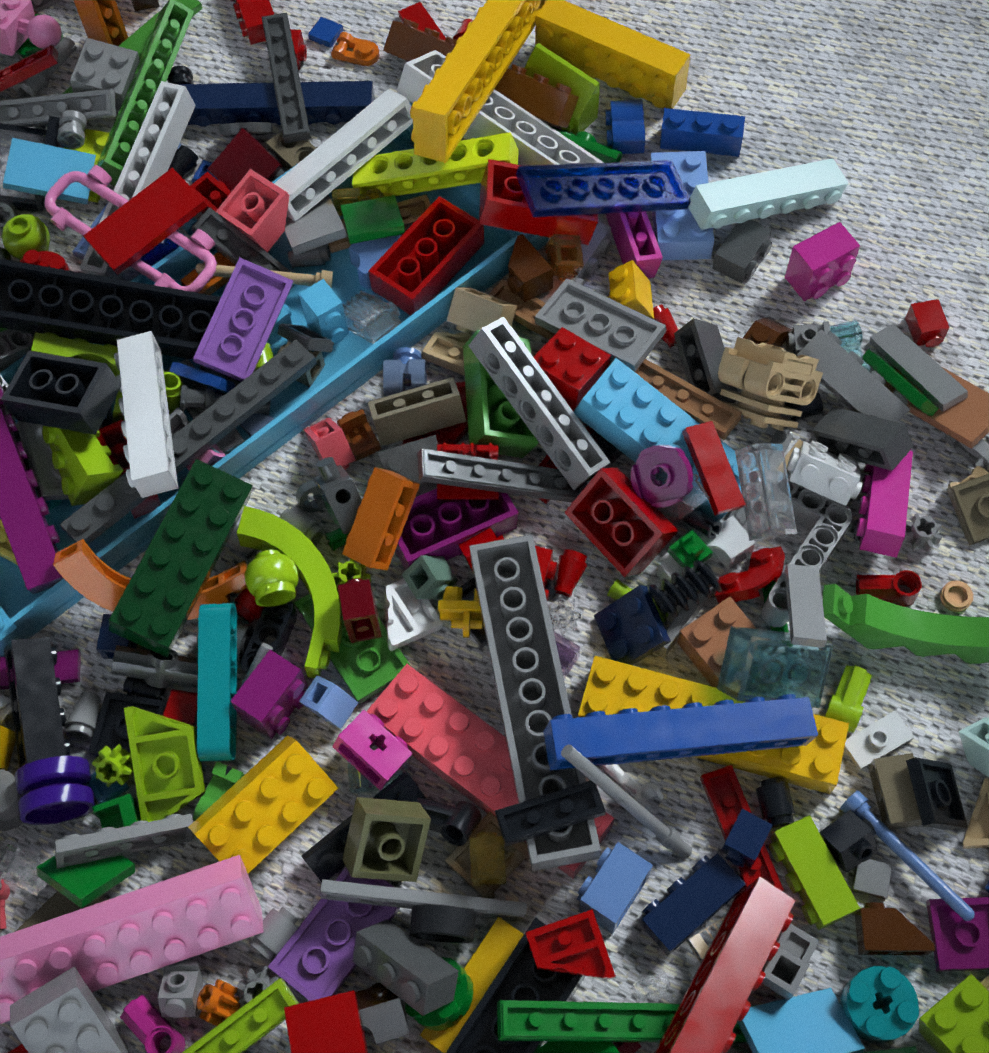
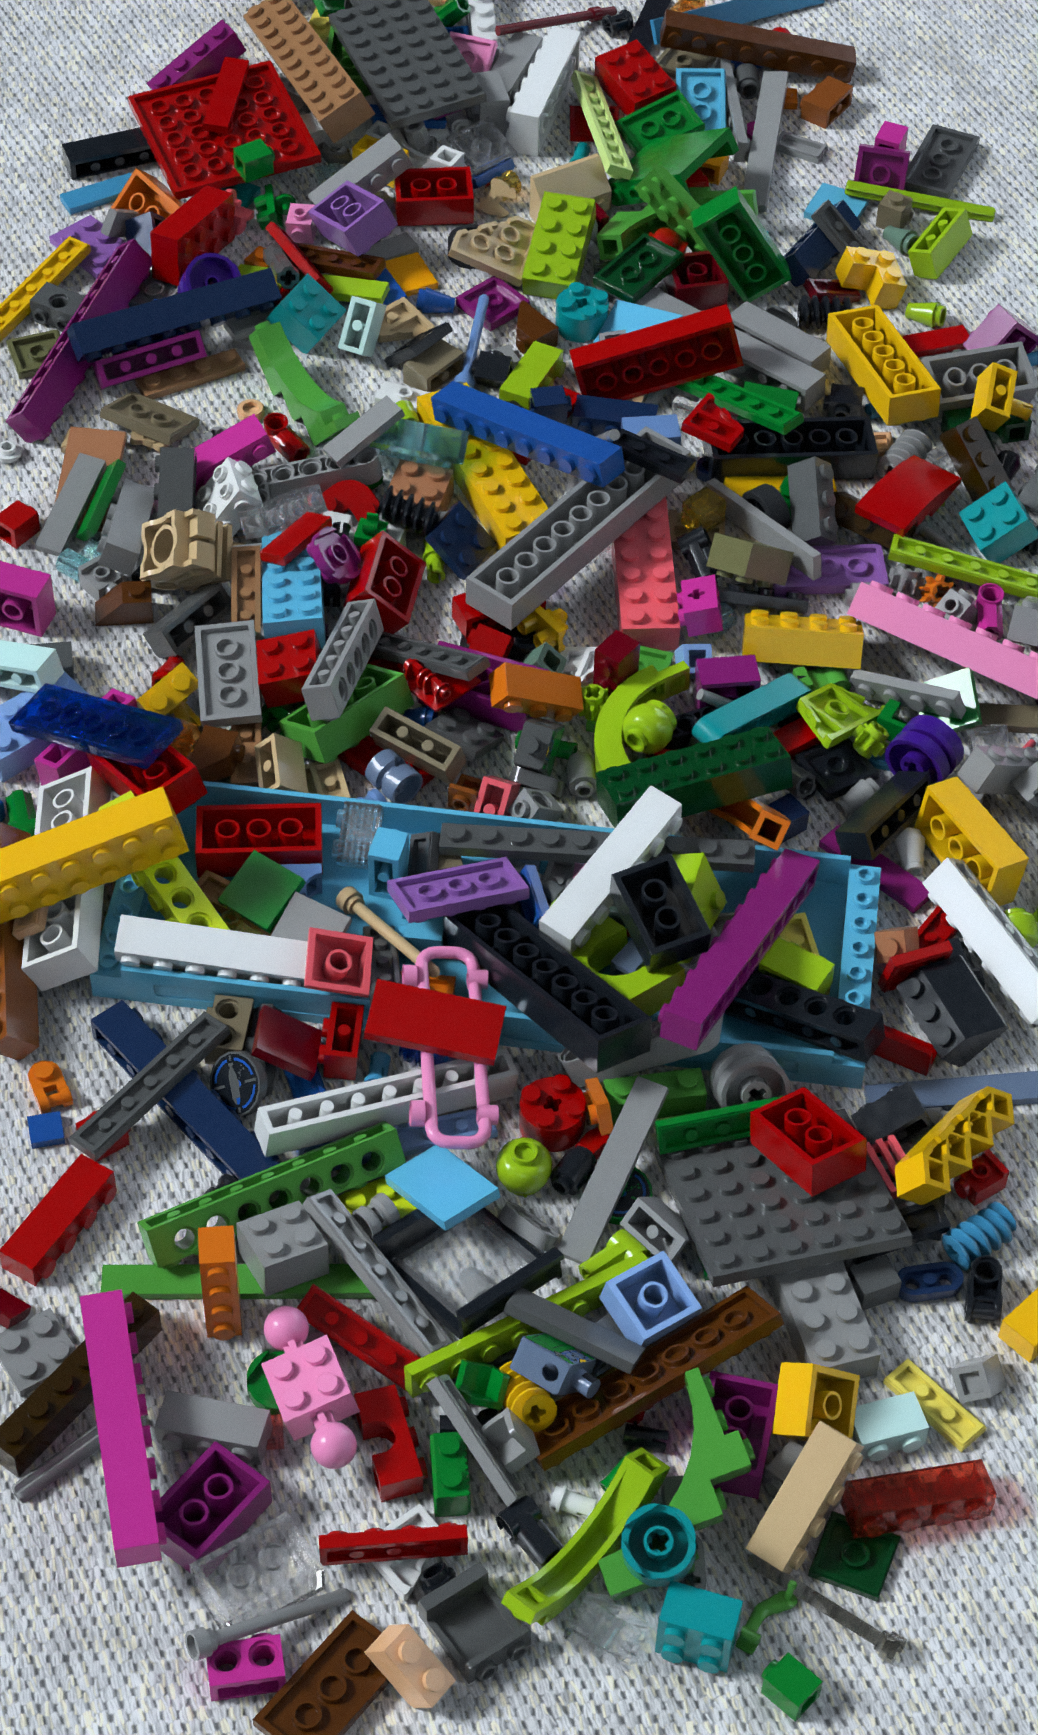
camera: 135 degrees left, 15 degrees down
(284, 469) = (536, 805): none -> light grey brick
(569, 571) = (440, 607): red cone -> none

